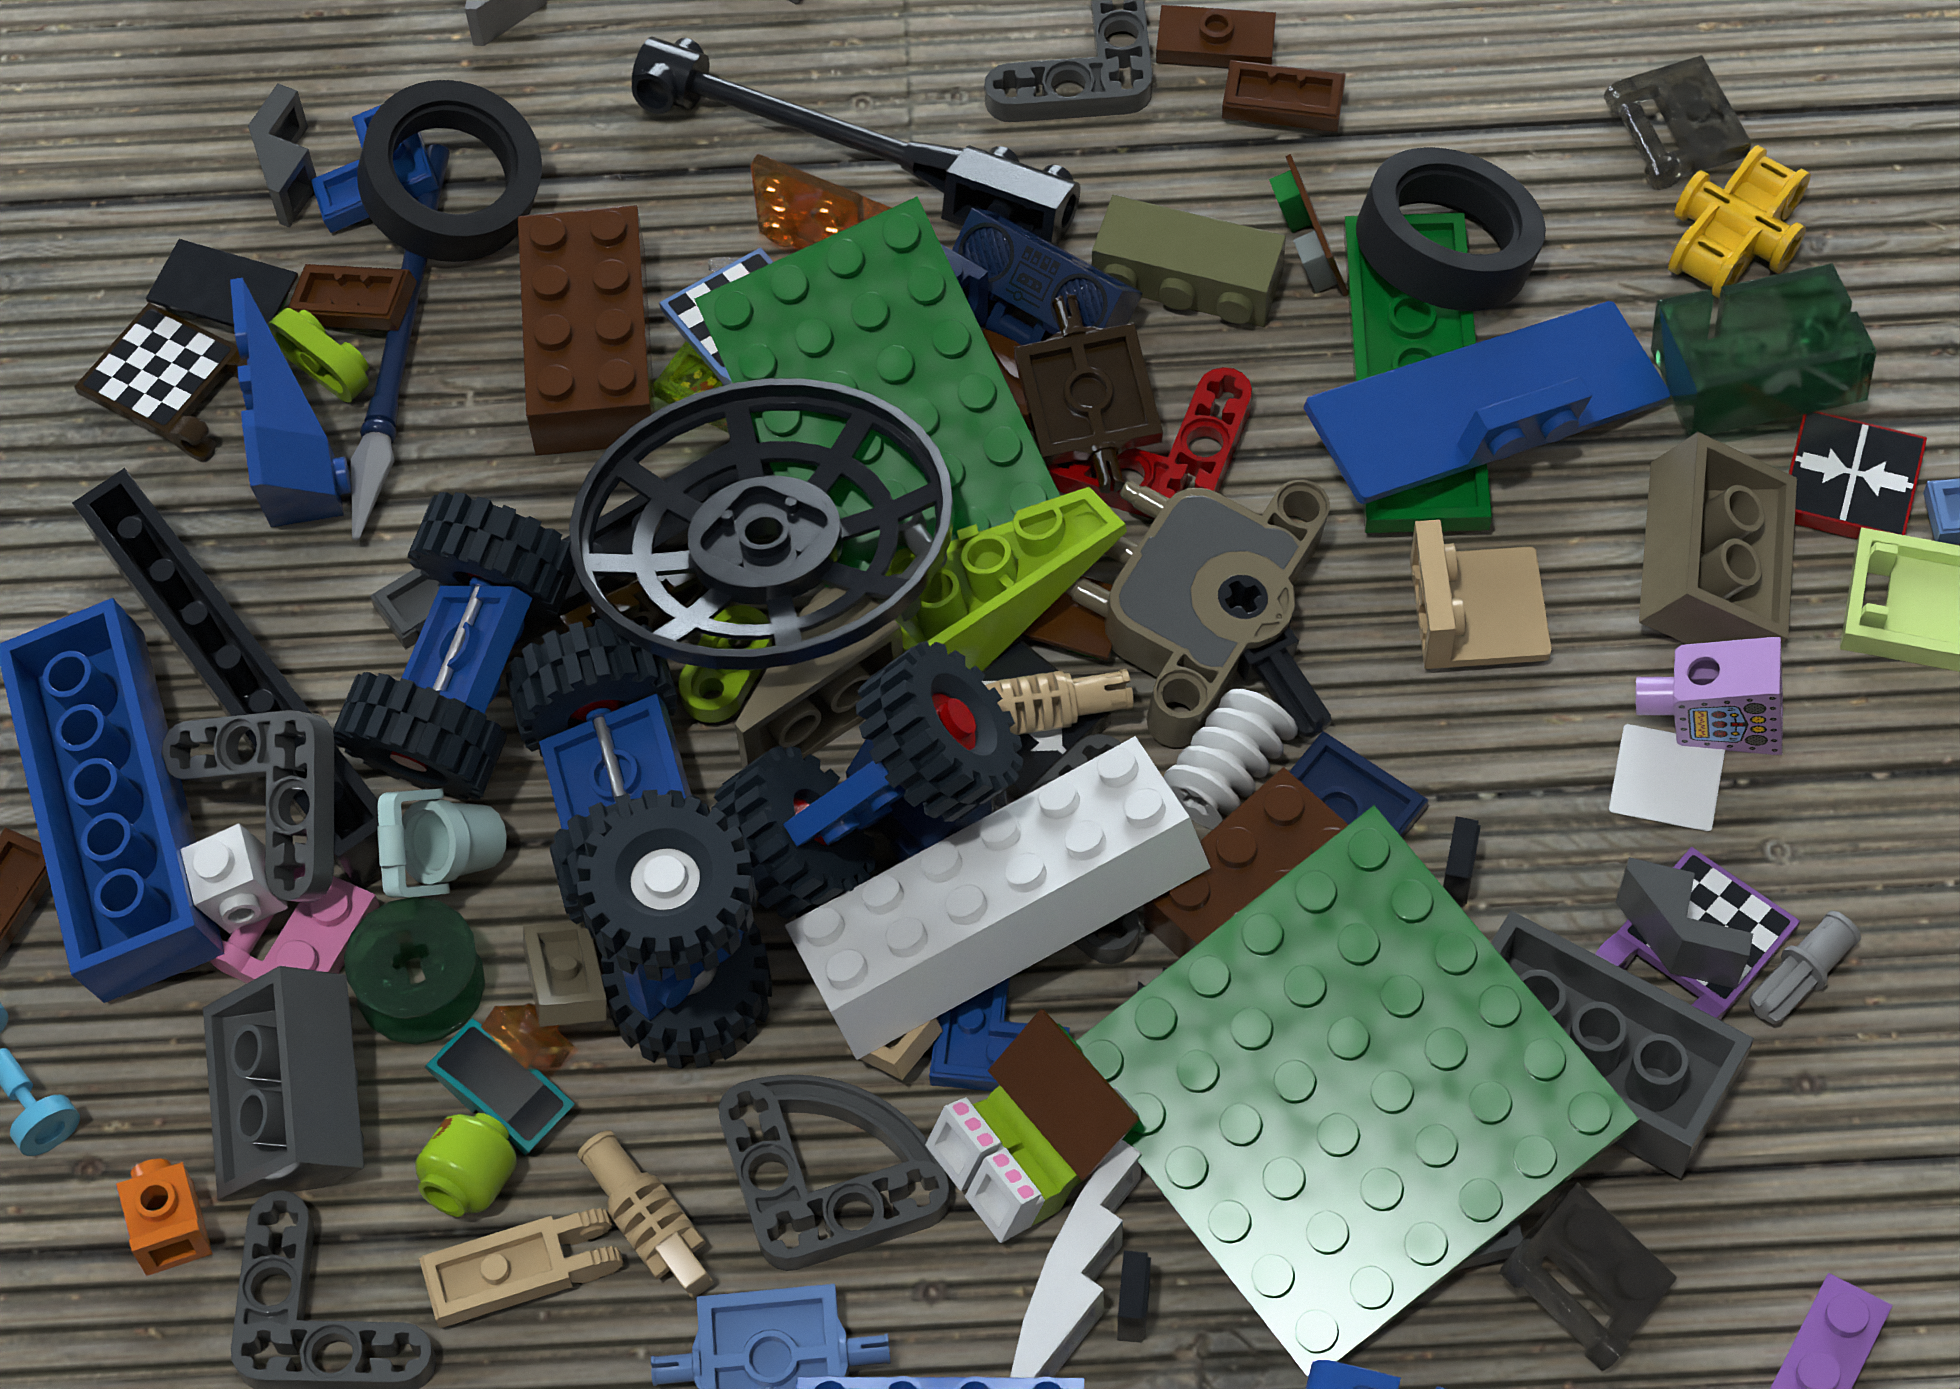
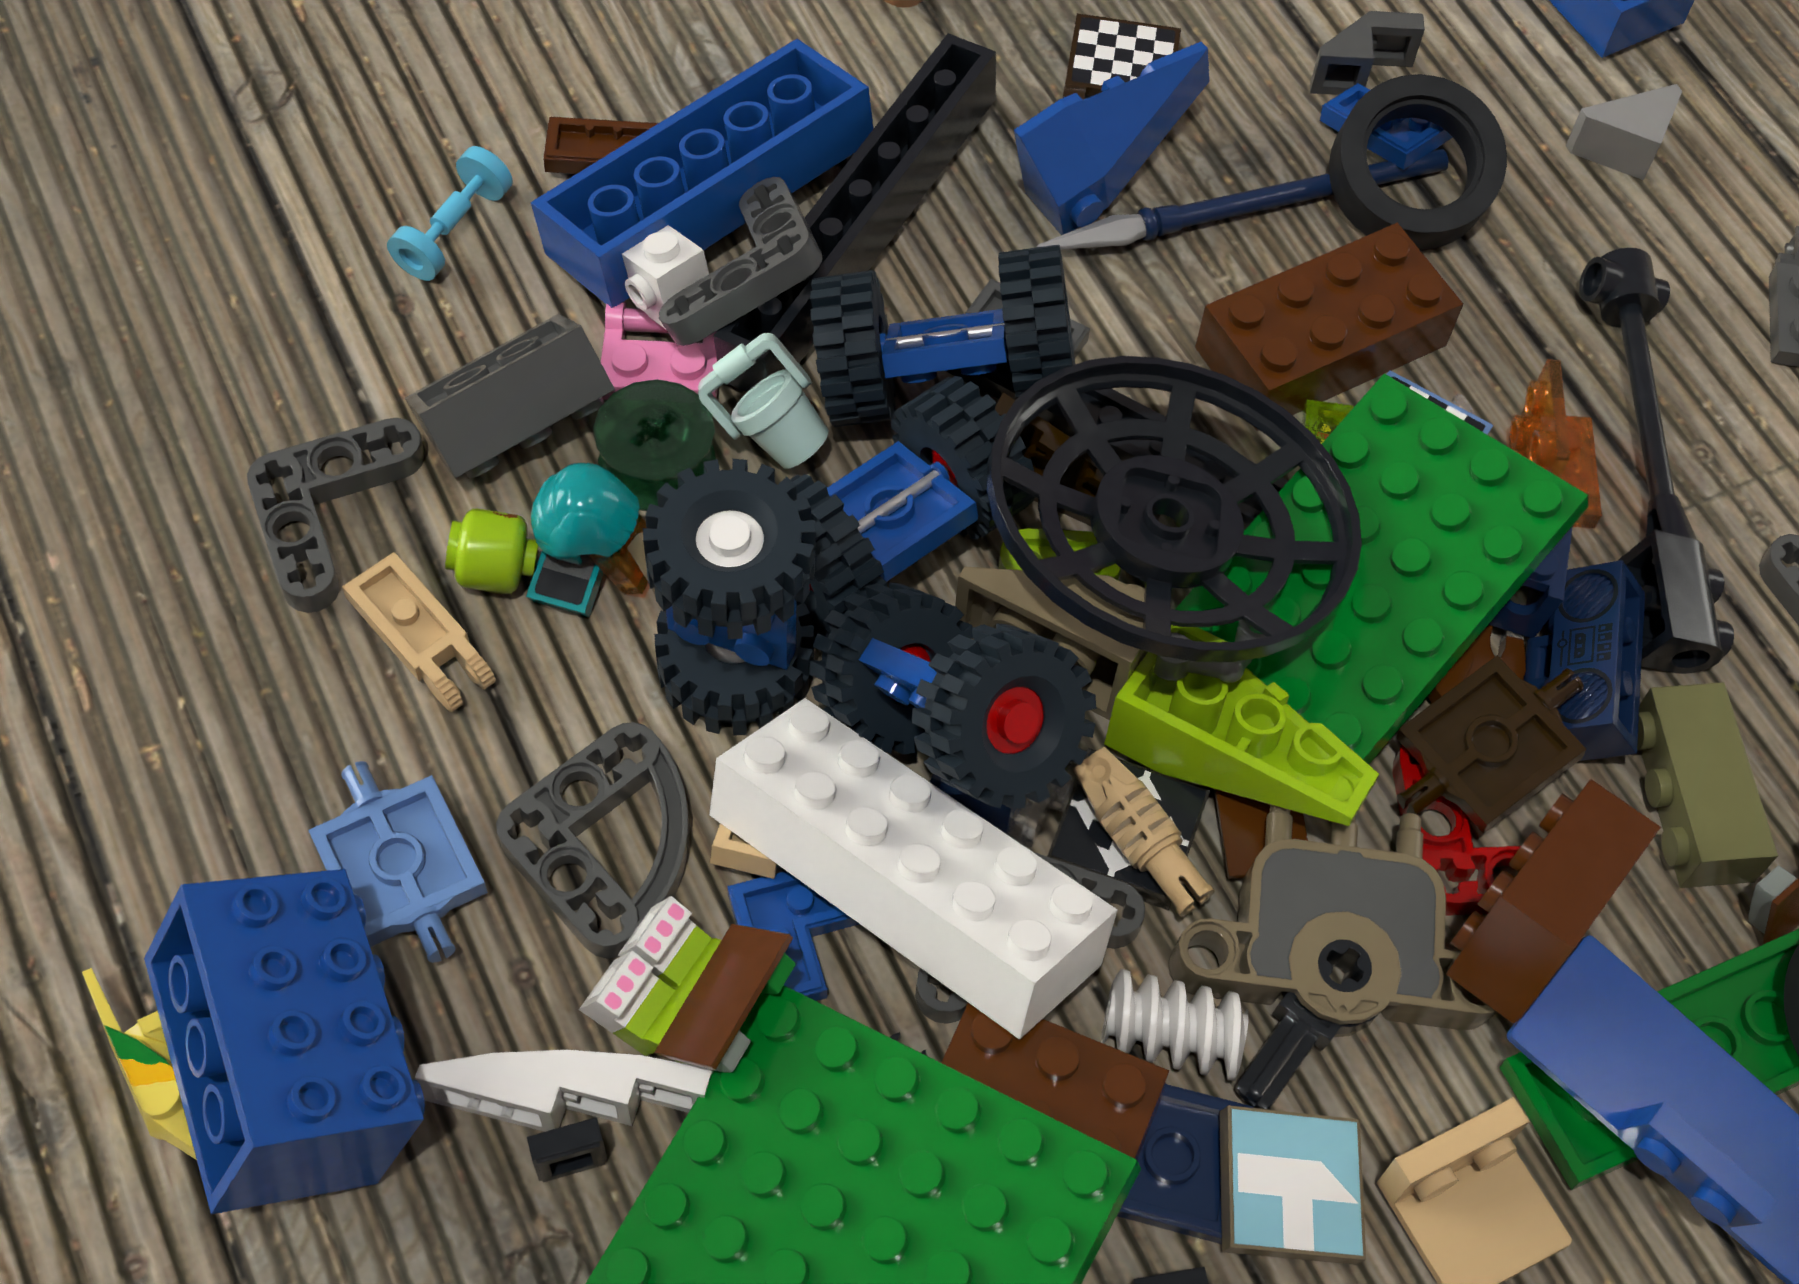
camera: 60 degrees right, 0 degrees up
(171, 1233) = (368, 363): orange brick -> none
(198, 283) = (1232, 73): black piece -> none
(308, 346) = (1191, 168): lime plate -> none
(354, 296) = (1262, 153): reddish brown plate -> none
(484, 1052) = (583, 513): none -> teal hair
(646, 1214) = (499, 711): tan hinge -> none
(1268, 409) = (1552, 899): none -> reddish brown brick
(1404, 729) = (1291, 1185): none -> tile

